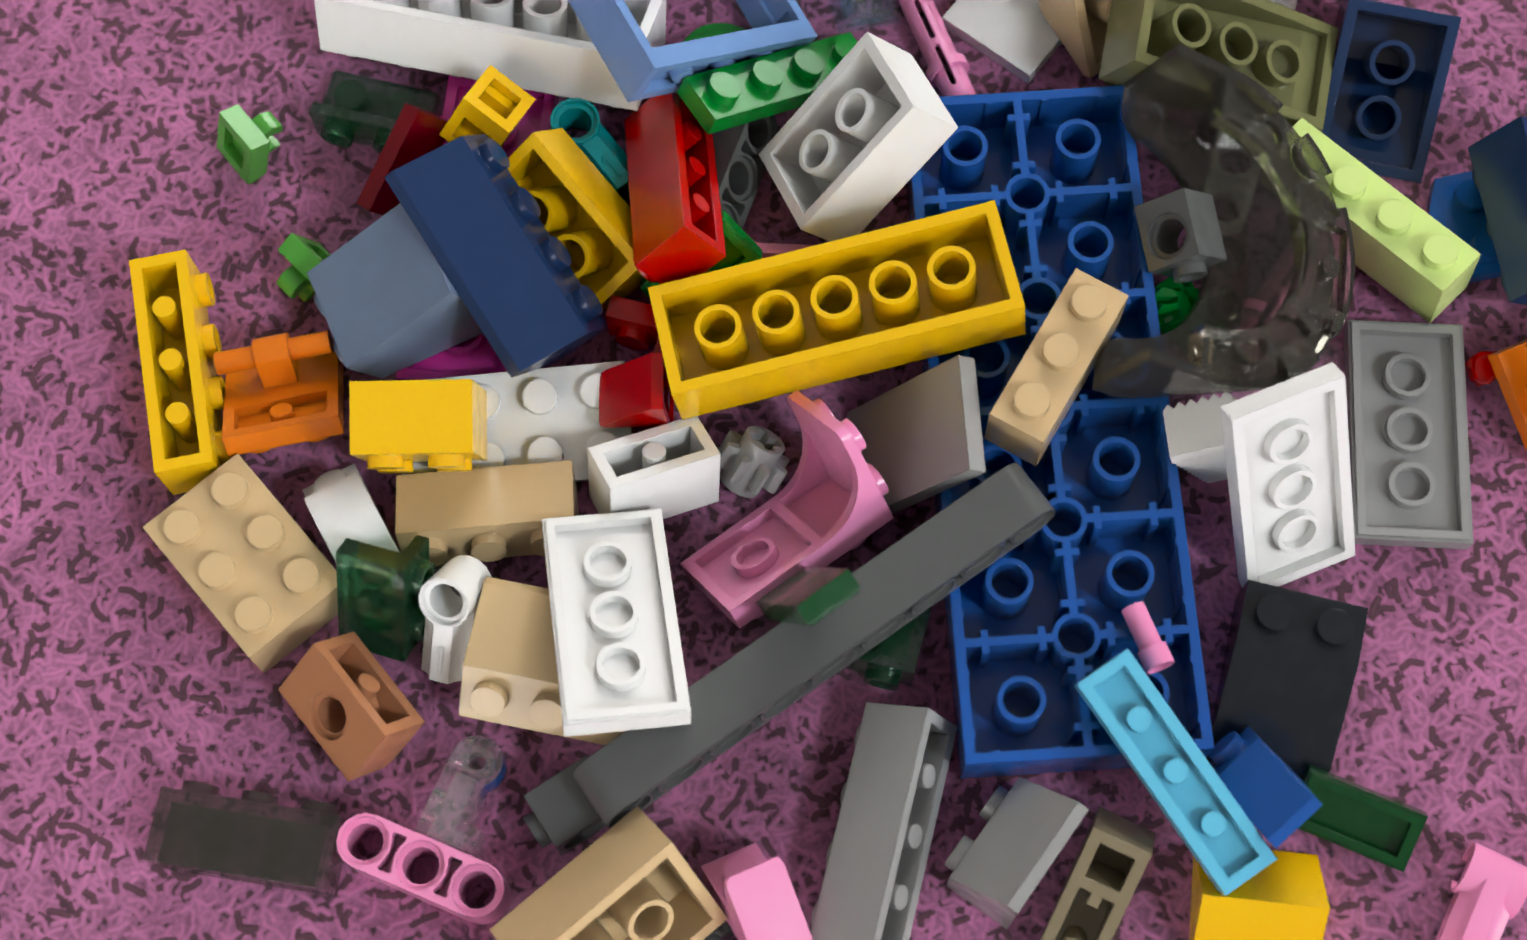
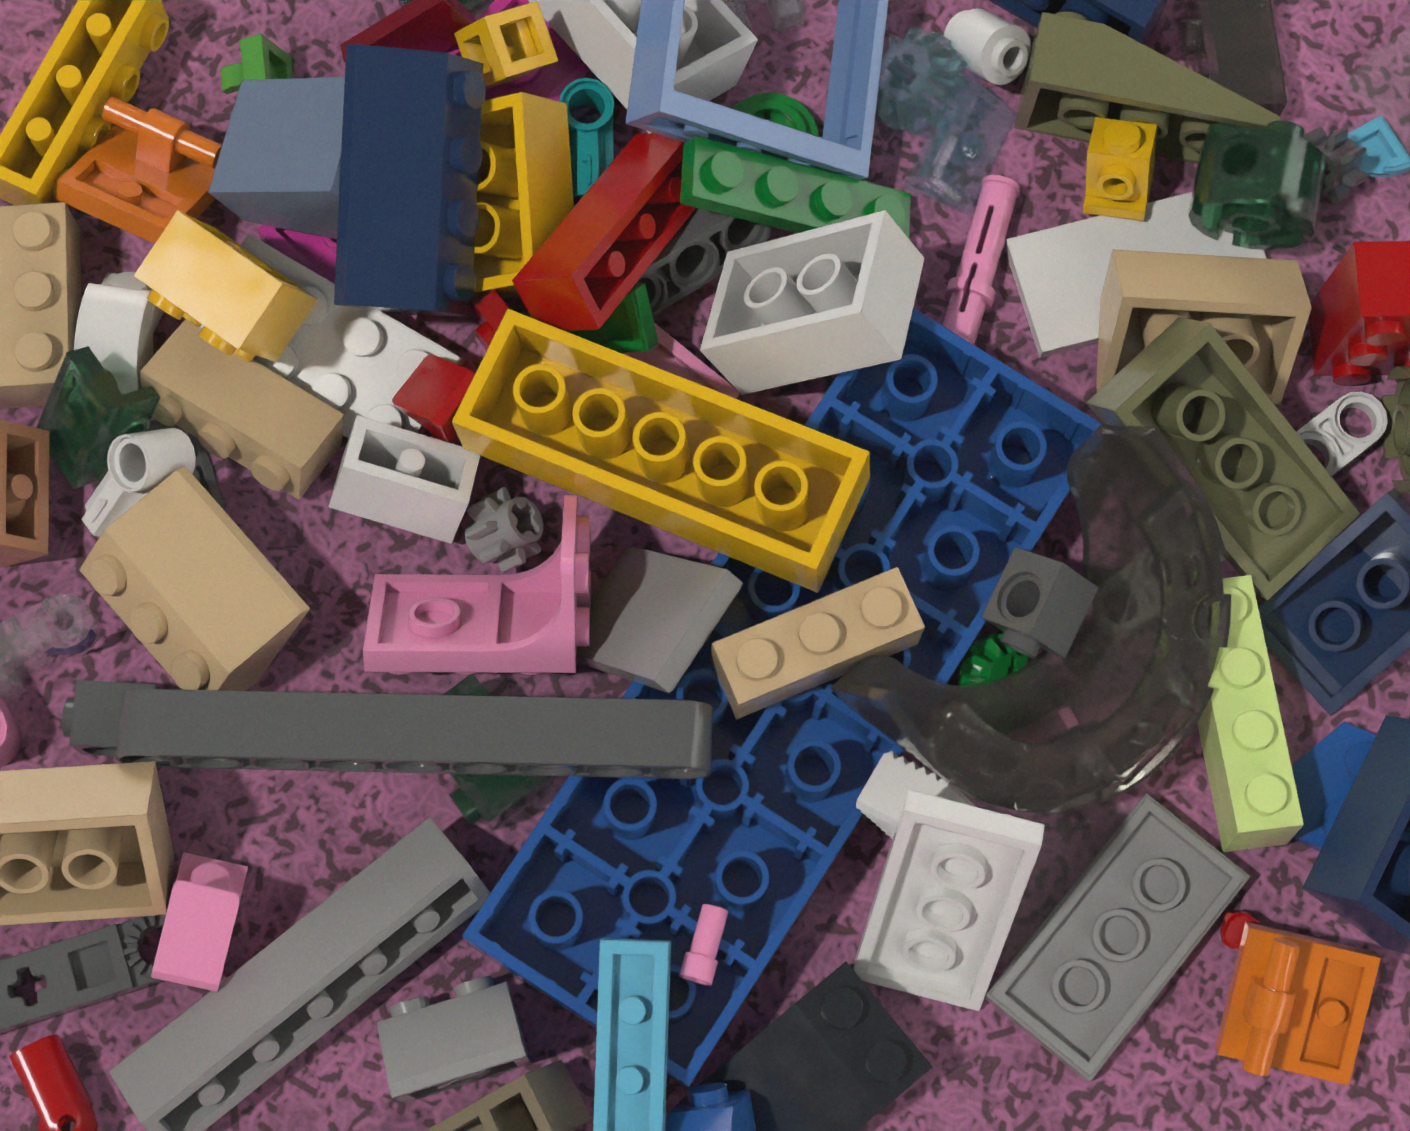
camera: 30 degrees right, 5 degrees up
(614, 623) = (253, 587): white tile -> none
(809, 595) = (416, 689): dark green tile -> none

